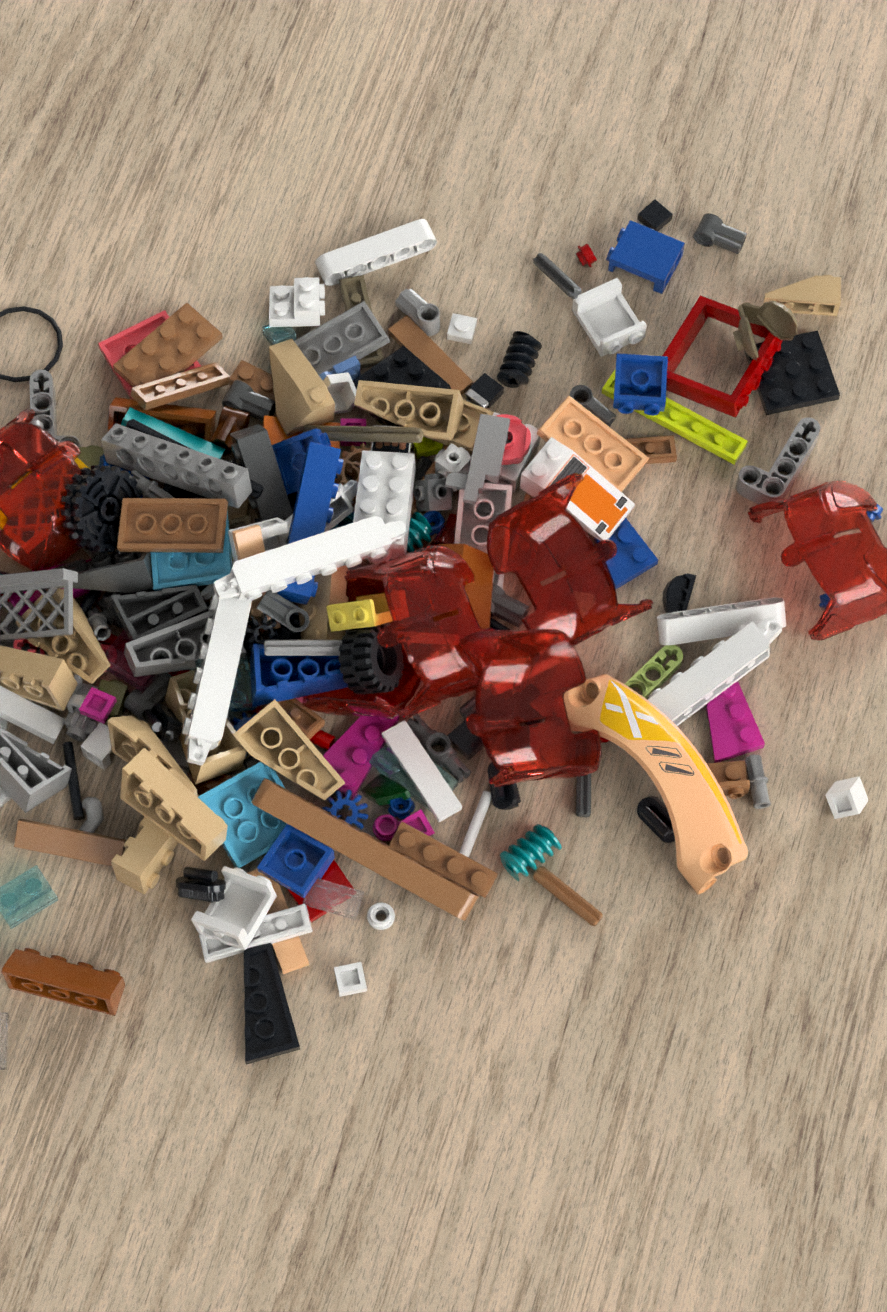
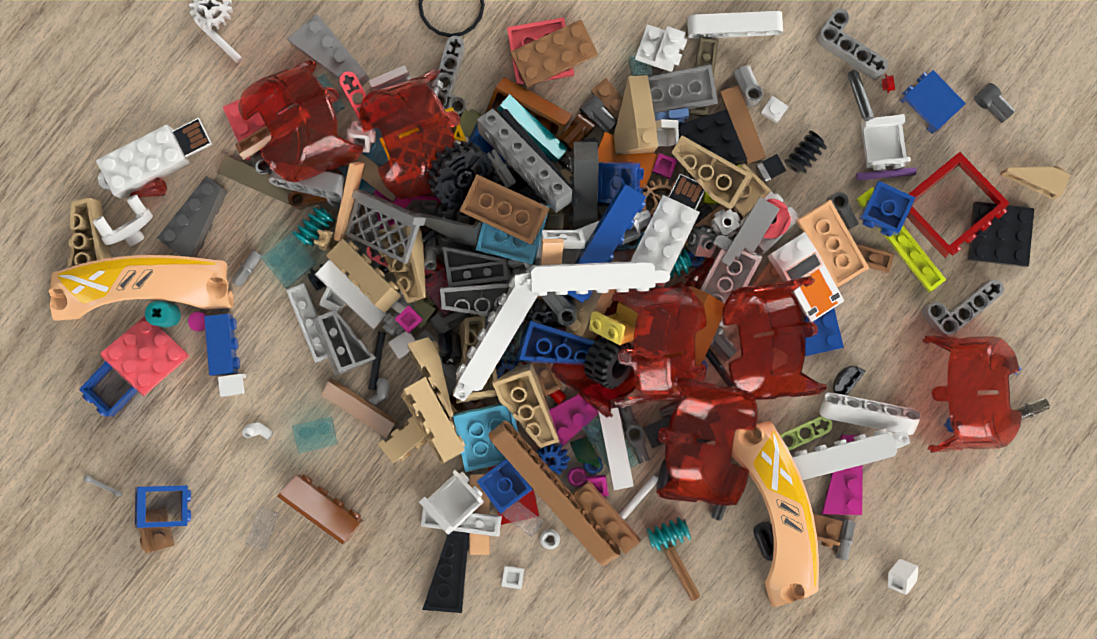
camera: 25 degrees right, 20 degrees up
(180, 386) = (552, 86): medium nougat plate -> none
(200, 885) = (436, 473): black piece -> none
(302, 647) = (564, 336): light grey axle -> none
(370, 433) = (671, 180): dark tan axle -> none
(503, 236) = (854, 47): none -> light grey beam
(634, 349) = (886, 174): none -> medium lavender bar
(655, 216) = (952, 68): black tile -> none
(773, 315) = (1008, 200): dark tan animal -> none

